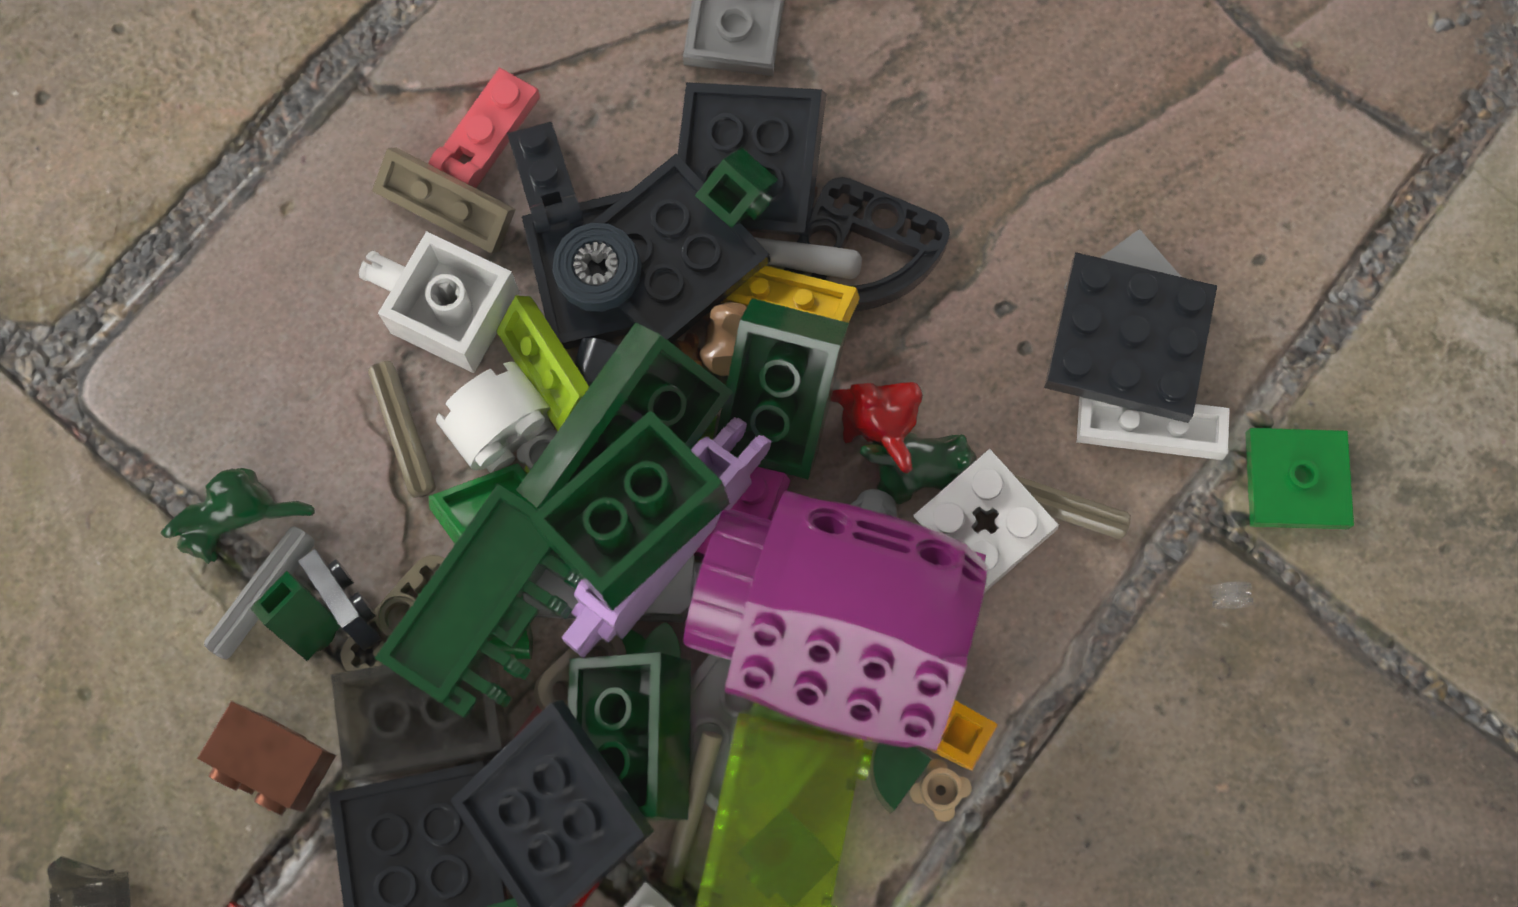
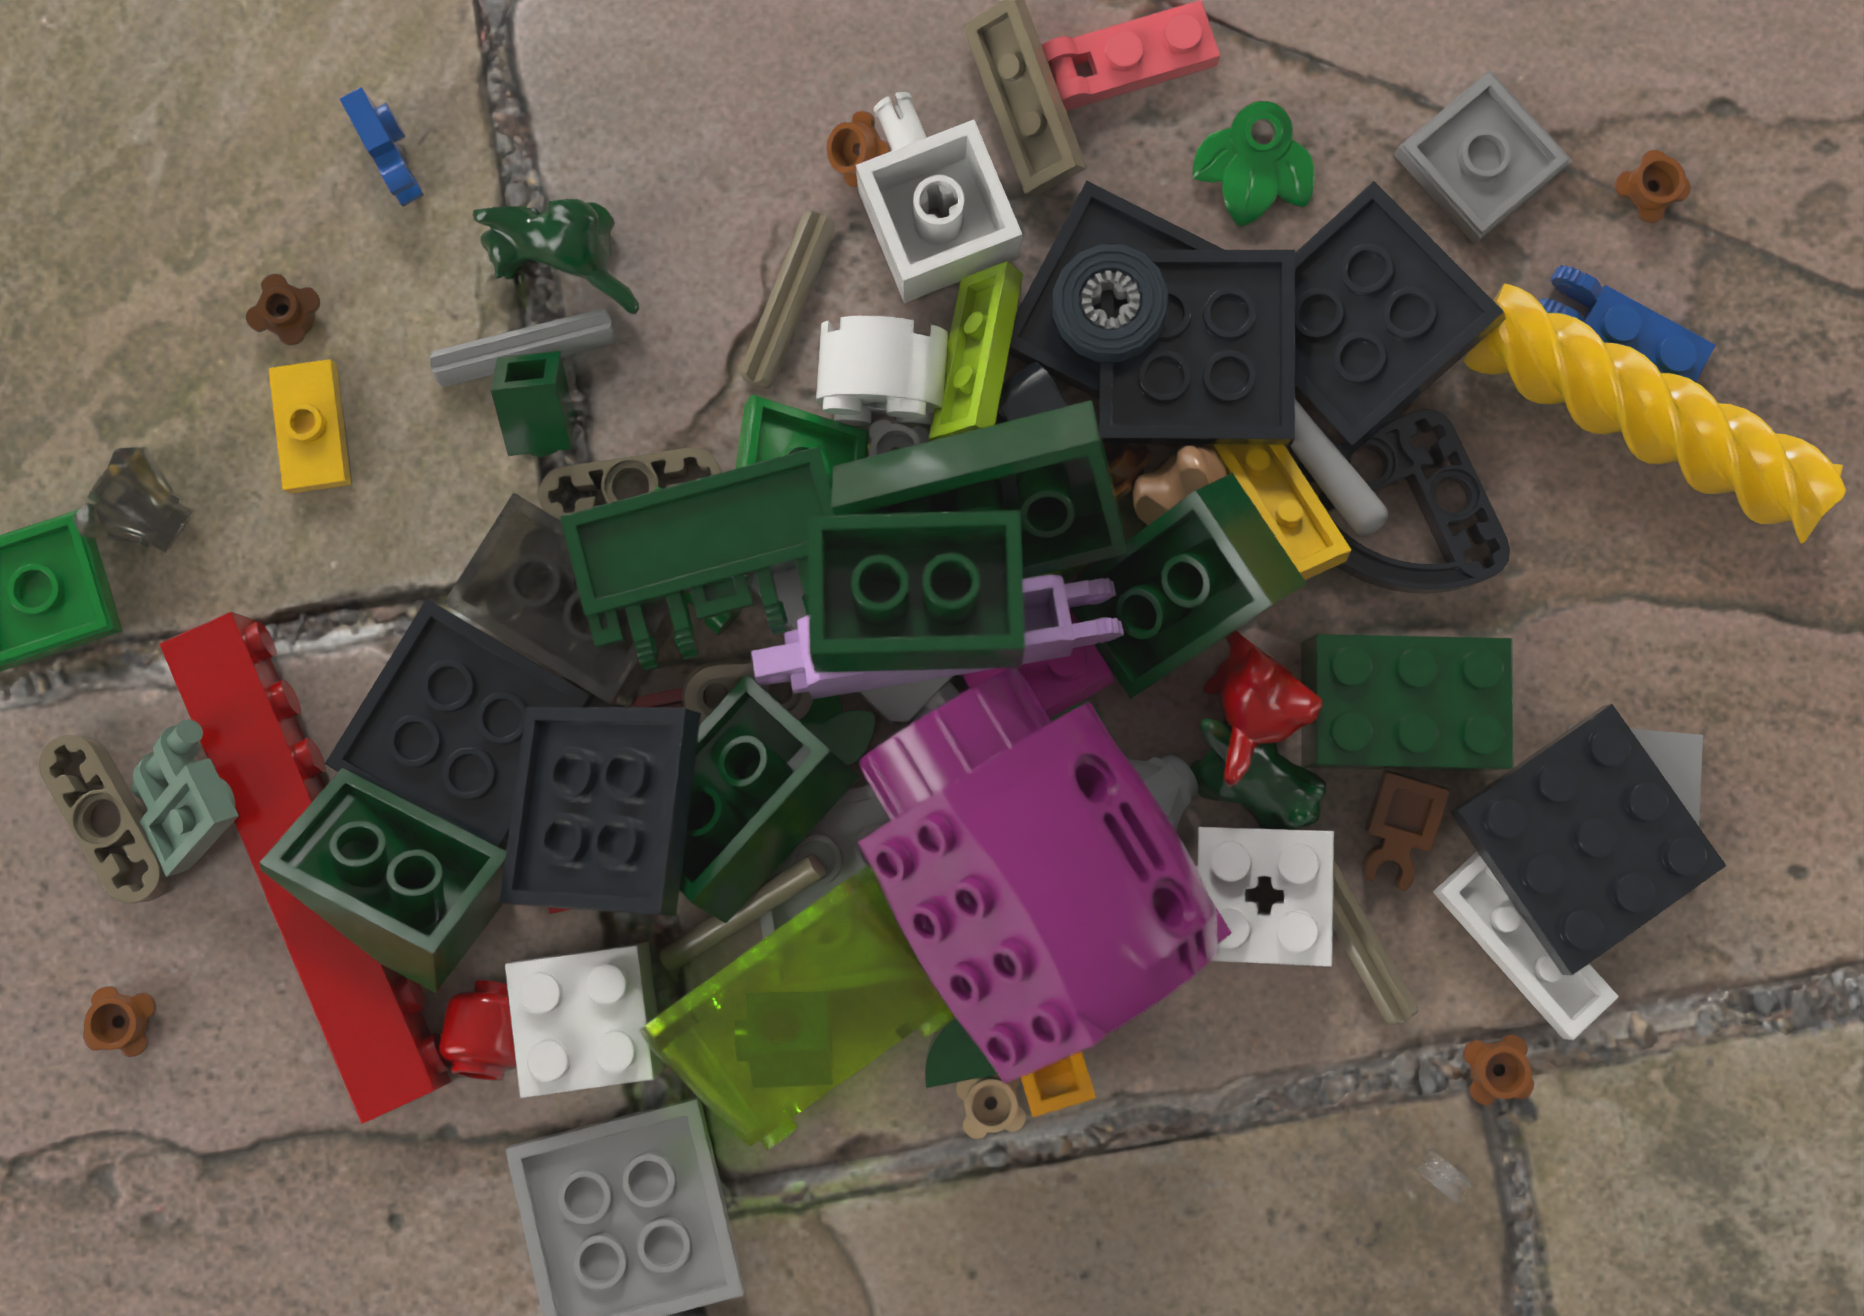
camera: 40 degrees right, 10 degrees up
(60, 540) = (380, 134): none -> blue plate
(98, 702) = (298, 320): none -> reddish brown plate
(160, 755) = (309, 426): none -> yellow plate
(265, 757) = (391, 519): copper brick -> none
(350, 611) = (584, 441): plate -> none
(357, 308) = (845, 142): none -> dark orange plate
(544, 176) = (1144, 157): black plate -> none
(614, 135) = (1253, 171): none -> green plate
(737, 188) = (1322, 344): dark green brick -> none
(898, 55) = (1631, 324): none -> blue hinge
(957, 78) = (1659, 414): none -> yellow piece
(966, 348) = (1409, 702): none -> dark green brick
(1022, 413) = (1405, 816): none -> reddish brown plate
(1204, 494) = (1514, 1081): none -> dark orange plate
(1299, 478) = (1623, 1125): green plate -> none

